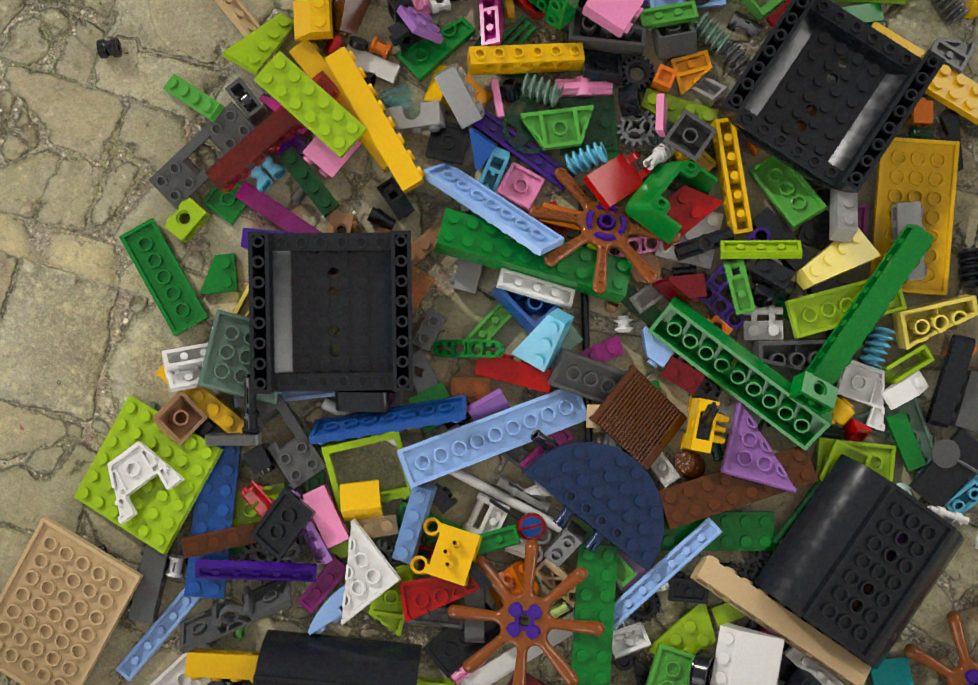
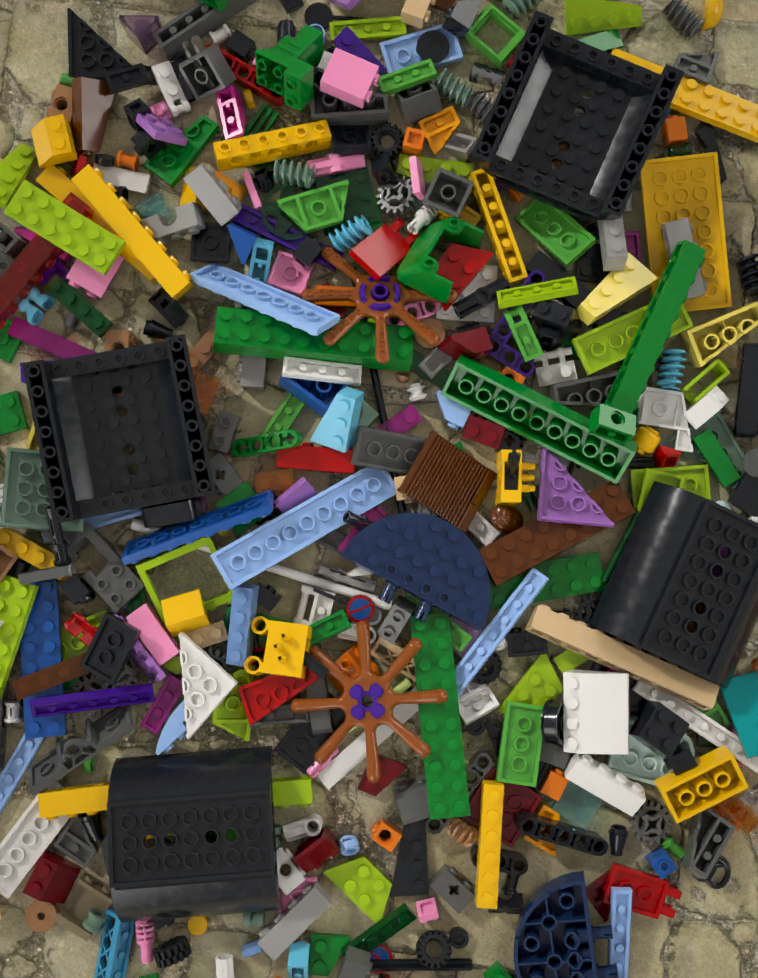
camera: 10 degrees left, 0 degrees up
(541, 169) = (308, 252): none -> black brick

